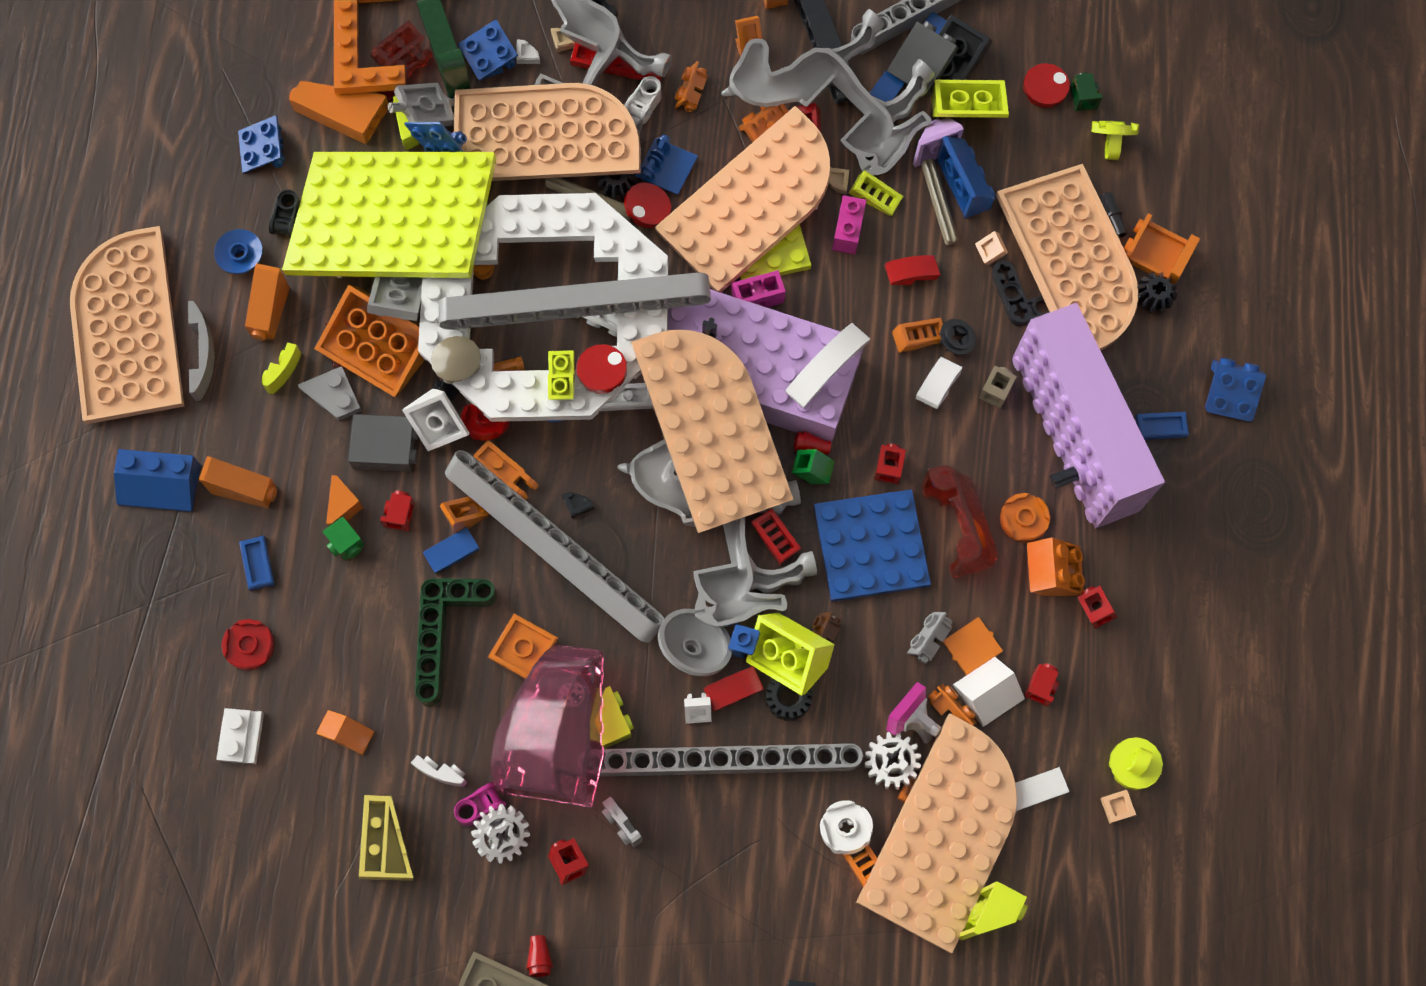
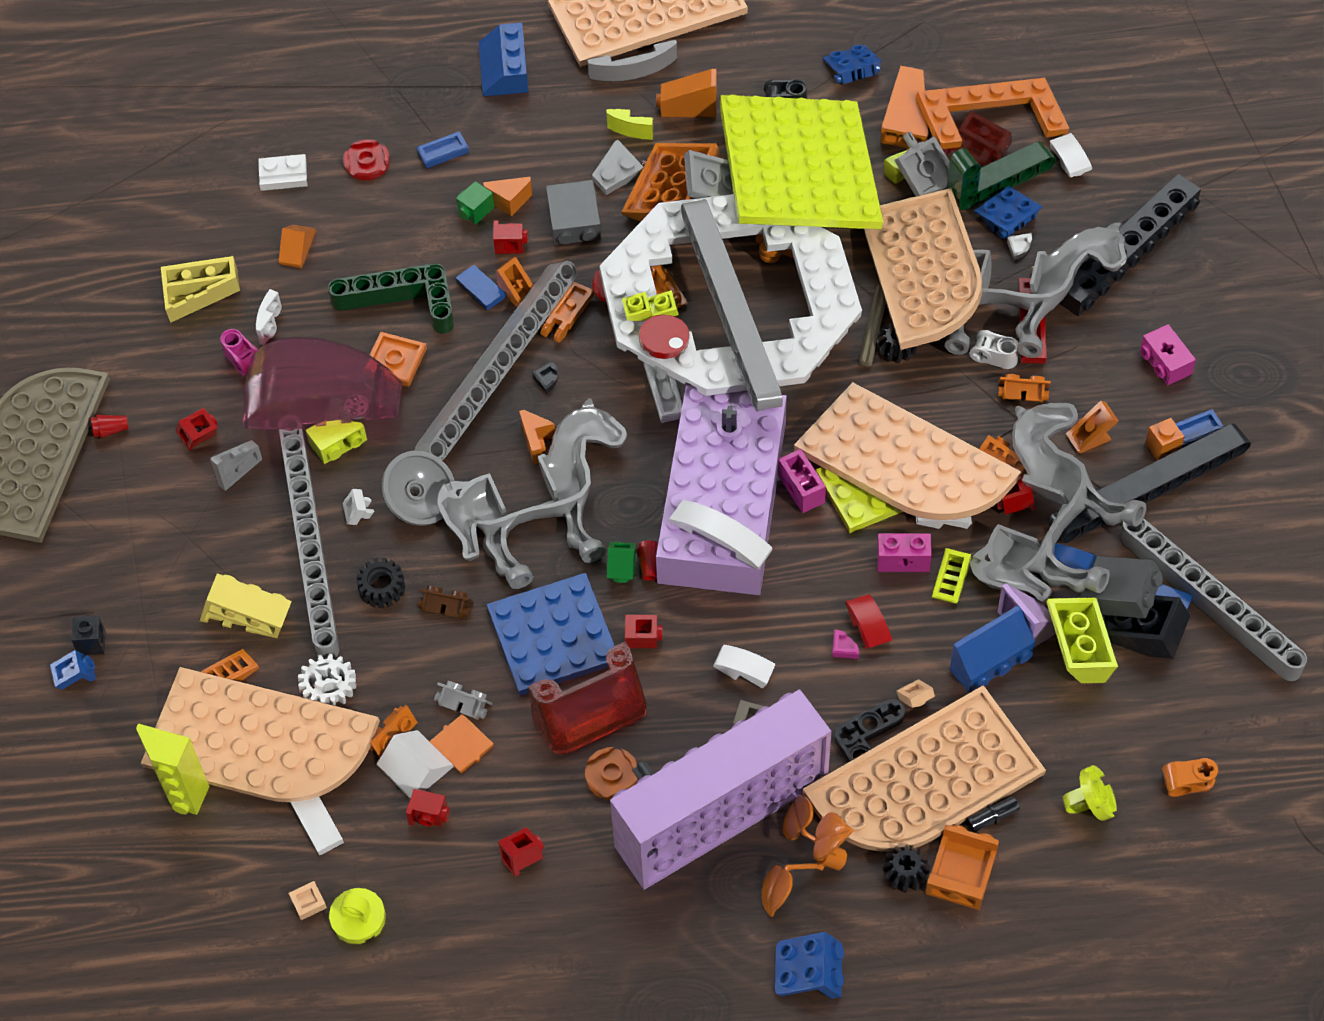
camera: 85 degrees right, 15 degrees down
(237, 242) = (737, 67): blue dish -> none
(237, 483) = (509, 112): orange slope -> none
(435, 137) = (891, 189): blue hinge -> none
(435, 419) = (601, 240): white slope -> none
(455, 359) = (650, 226): dark tan dish -> none
(504, 844) = (215, 371): white gear -> none
(642, 526) = (536, 431): none -> orange slope
(647, 204) = (876, 371): red tile -> none
(666, 165) = (928, 383): blue hinge -> none
(711, 426) = (632, 448): light nougat plate -> none
(733, 688) = (381, 533): red slope -> none
(743, 641) = (427, 528): blue bracket -> none
(789, 539) = (541, 555): red slope -> none
(790, 652) = (421, 565): neon yellow slope -> none
(797, 832) = (245, 606): none -> light yellow wedge
(839, 180) = (960, 539): tan tile -> none
(854, 815) = (254, 663): white plate -> none
(905, 339) = (796, 621): orange slope -> none
(912, 715) = (376, 686): piece -> none
(928, 297) = (844, 646): none -> dark pink tile
(939, 202) = (946, 643): dark tan axle -> none
(958, 328) = (803, 663): black gear -> none
(1046, 85) = (1138, 725): red tile -> none
(1055, 568) = (557, 806): orange slope -> none
(1085, 92) = (1140, 762): dark green brick -> none
(1104, 58) = (1189, 777): none -> orange piece
(1158, 335) = (829, 836): none -> orange plant
(1162, 425) = (748, 898): blue tile -> none

